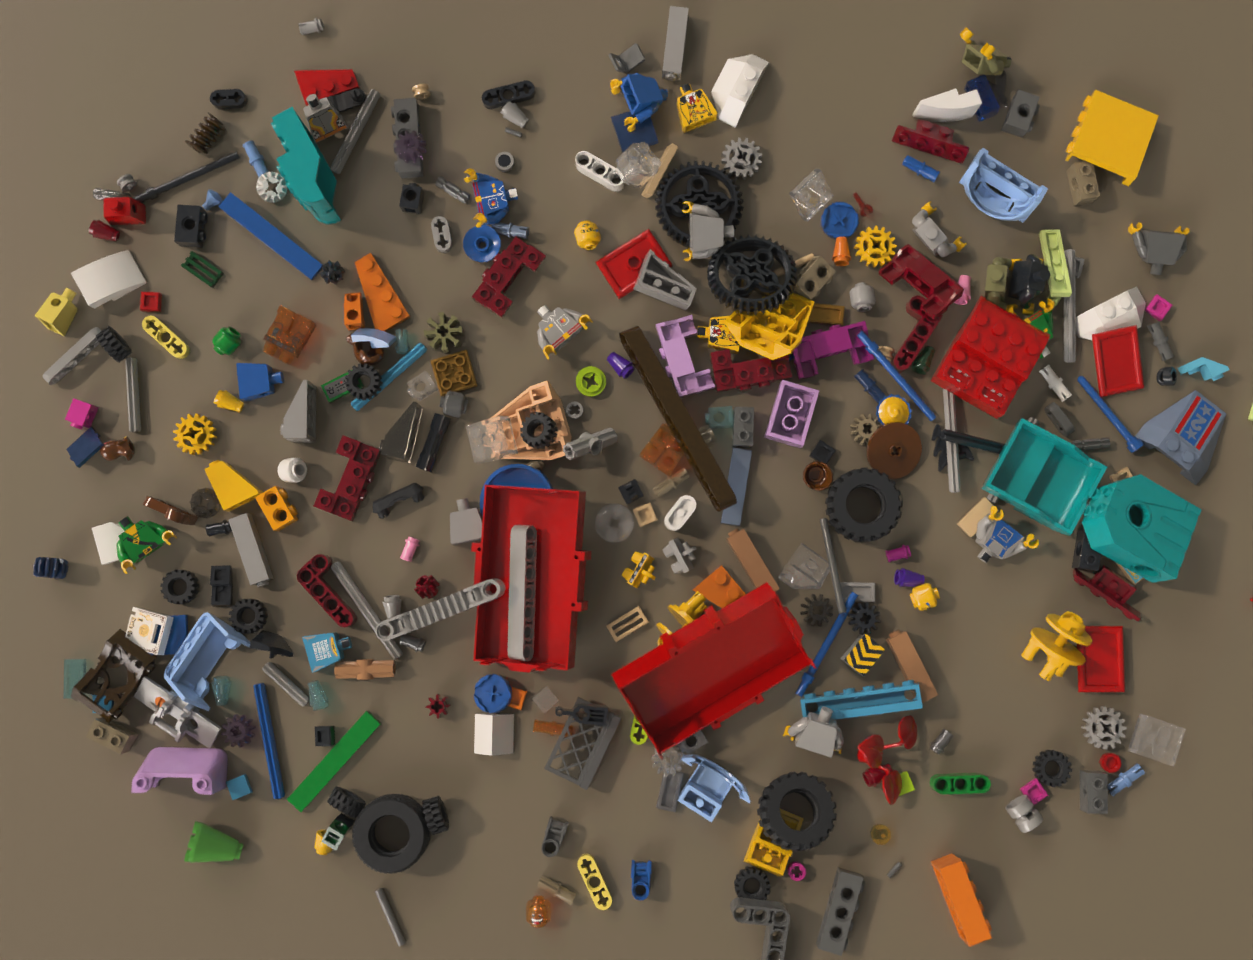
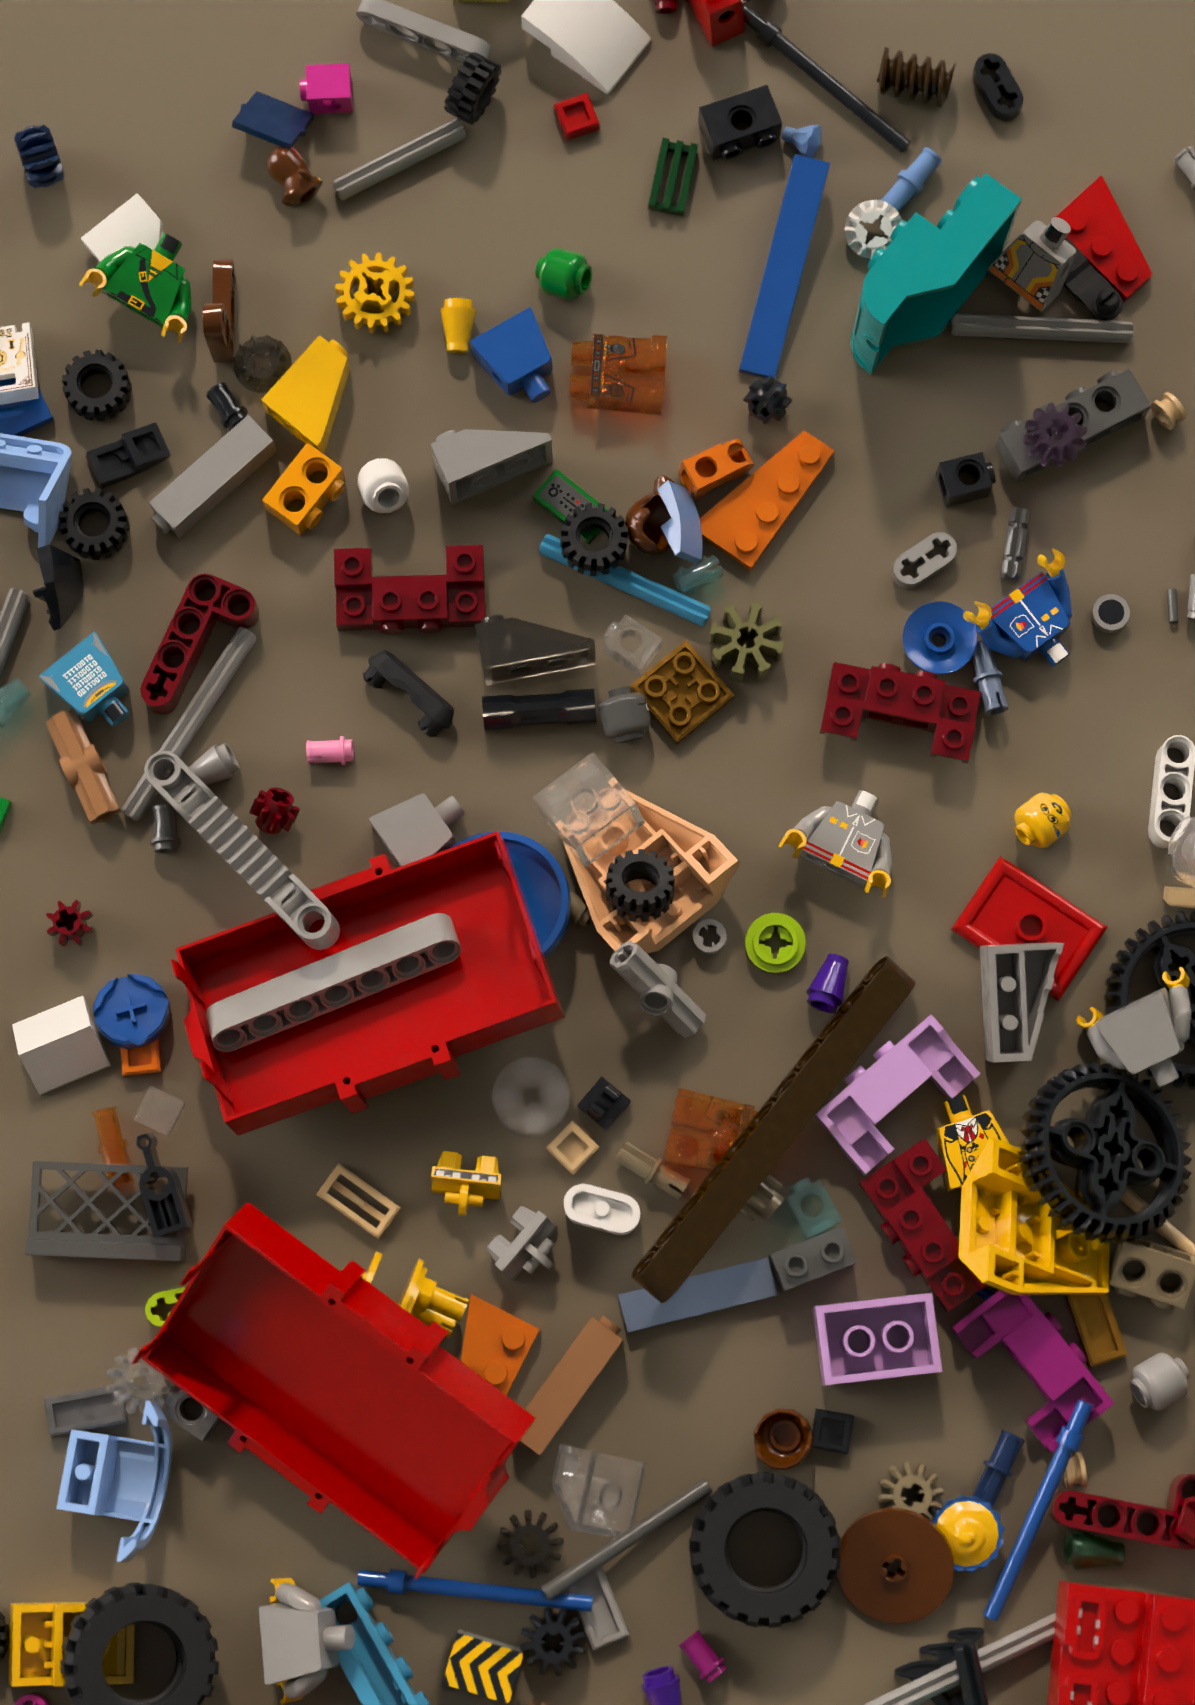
camera: 65 degrees right, 5 degrees down
(159, 324) = (518, 155): light yellow beam -> none

